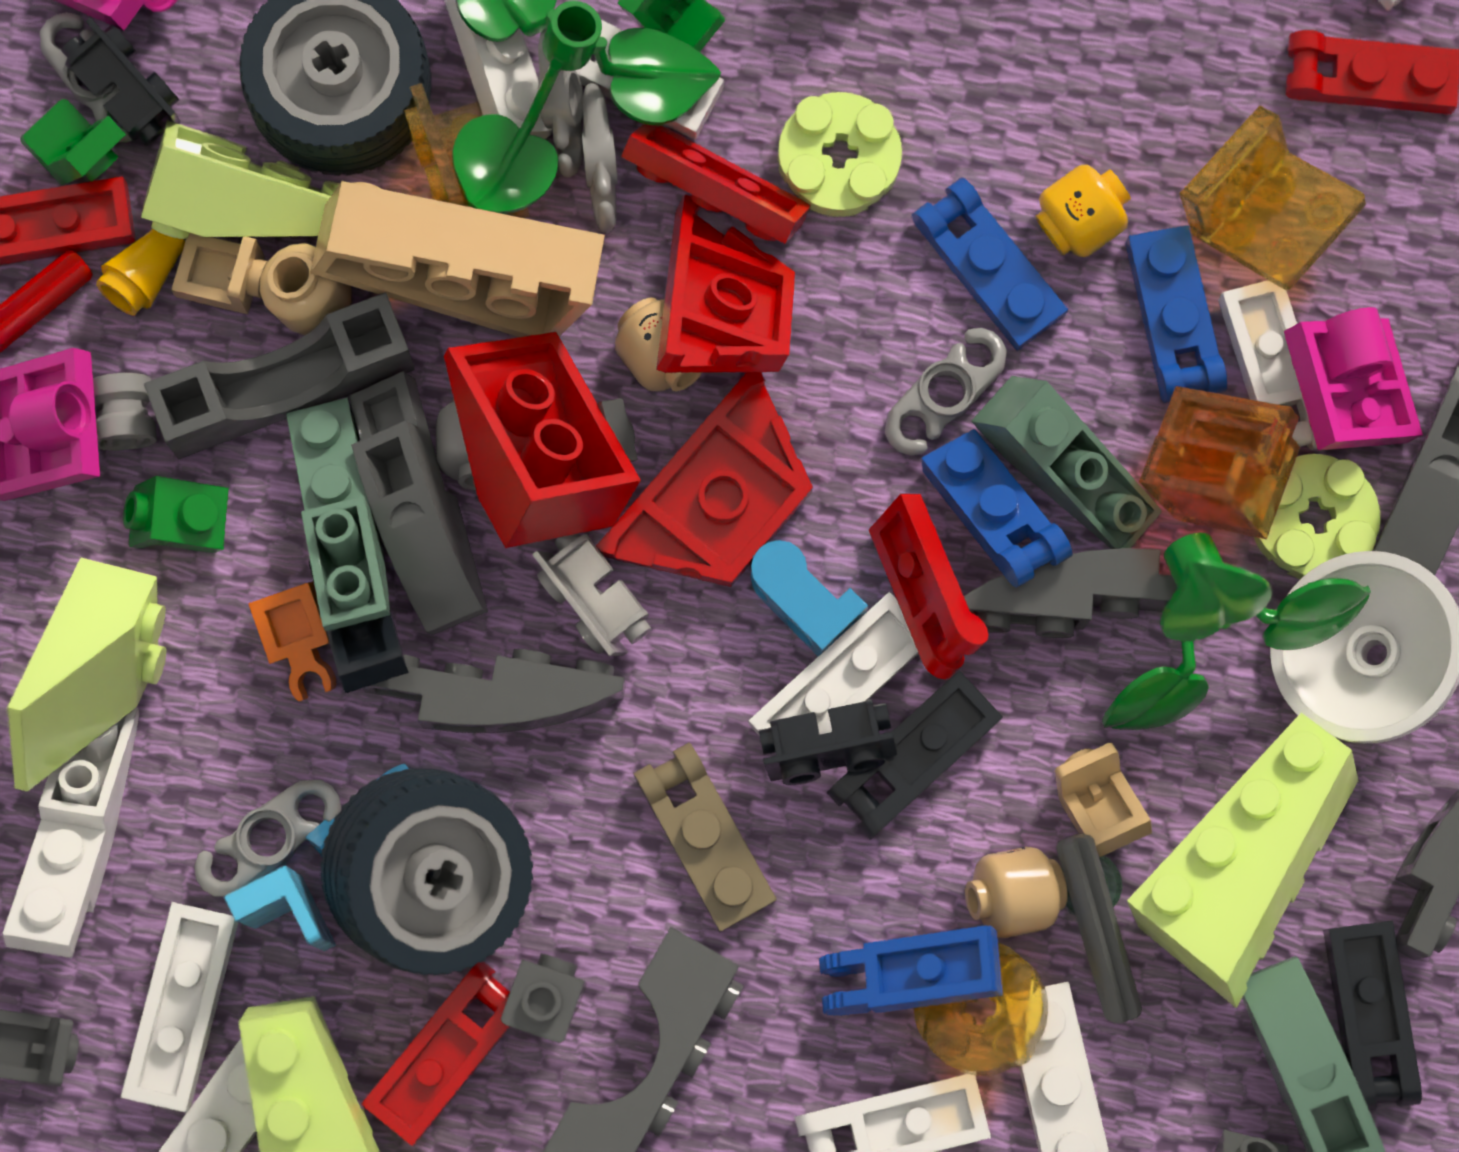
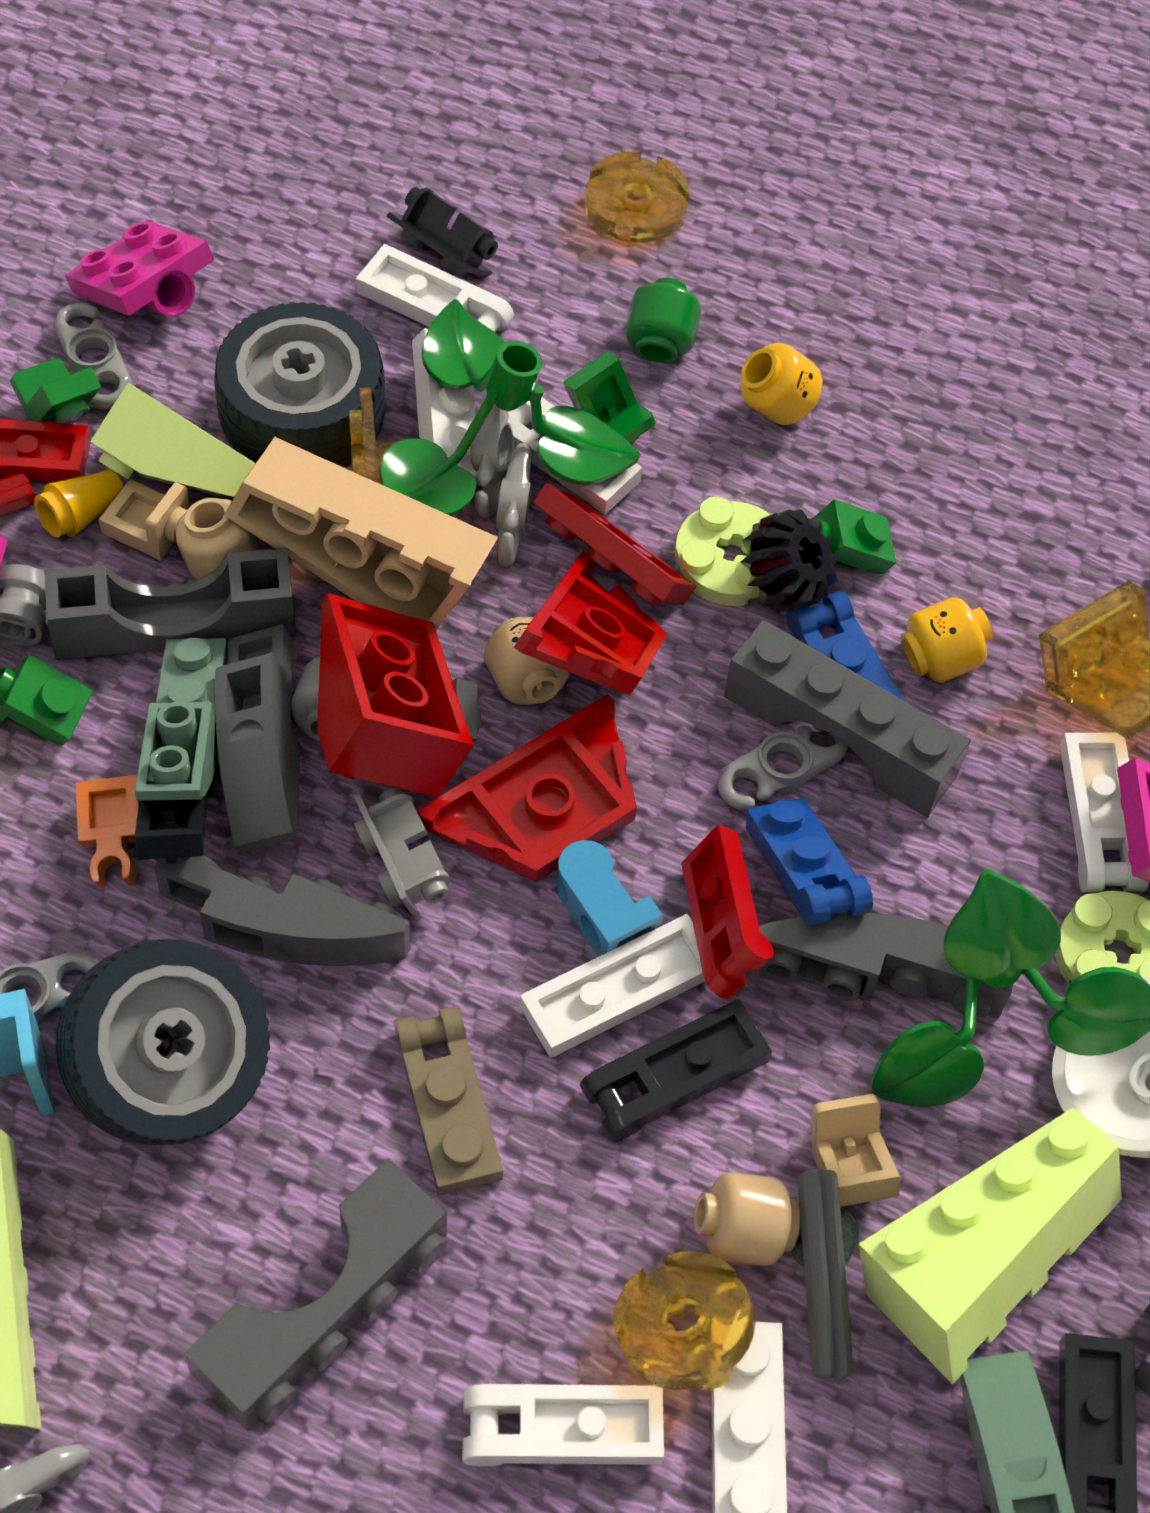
camera: 15 degrees right, 20 degrees down
(106, 61) = (108, 335): black hinge -> none
(440, 1058) = (125, 1238): red plate -> none
(544, 998) = (242, 1197): dark grey bracket -> none
(852, 743) = (561, 1030): black hinge -> none
(906, 166) = (789, 560): none -> black gear
(917, 971) = (623, 1265): blue hinge -> none
(956, 111) = (858, 536): none -> green bracket
(957, 311) = (899, 744): none -> dark grey arch
(1066, 460) = (884, 838): sand green slope -> none
(1175, 310) = (1017, 747): blue plate -> none
(1222, 461) = (1046, 849): clear orange plate -> none

